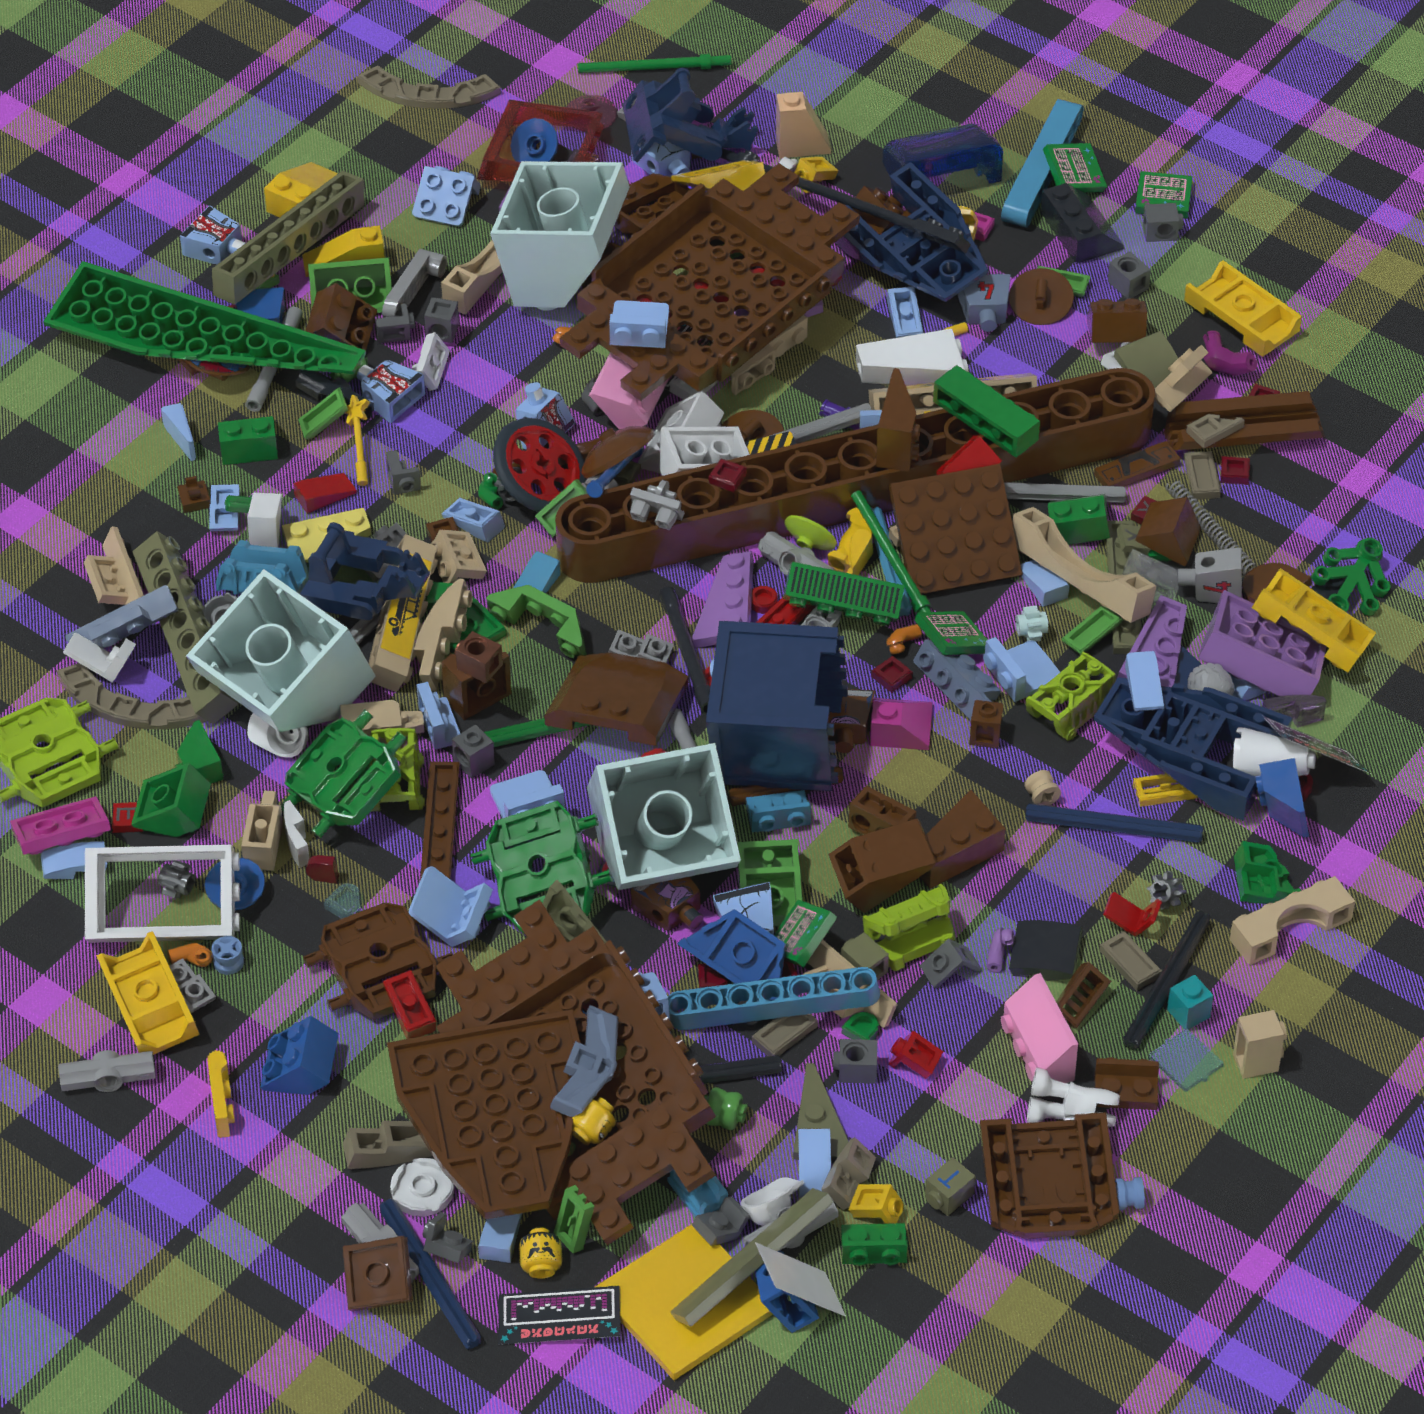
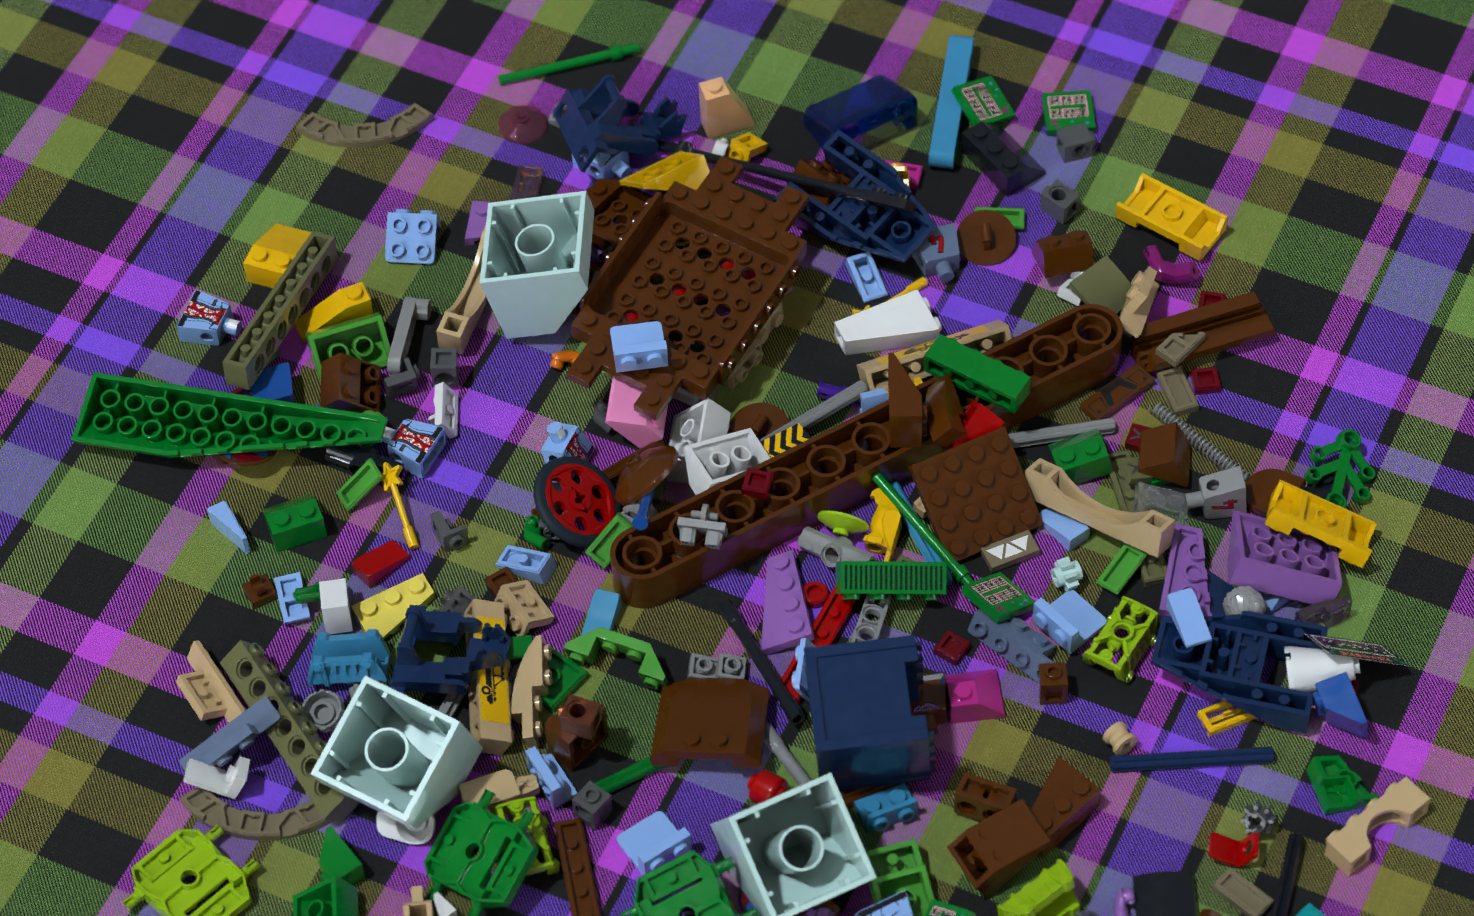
camera: 10 degrees left, 5 degrees up
(260, 389) = (292, 469): light grey piece -> none
(517, 112) = (458, 137): clear red windscreen -> none
(529, 135) = (471, 168): blue dish -> none
(902, 635) = (949, 609): orange arm -> none
(940, 440) = (944, 412): none -> reddish brown slope
(980, 594) = (1010, 551): none -> dark tan tile

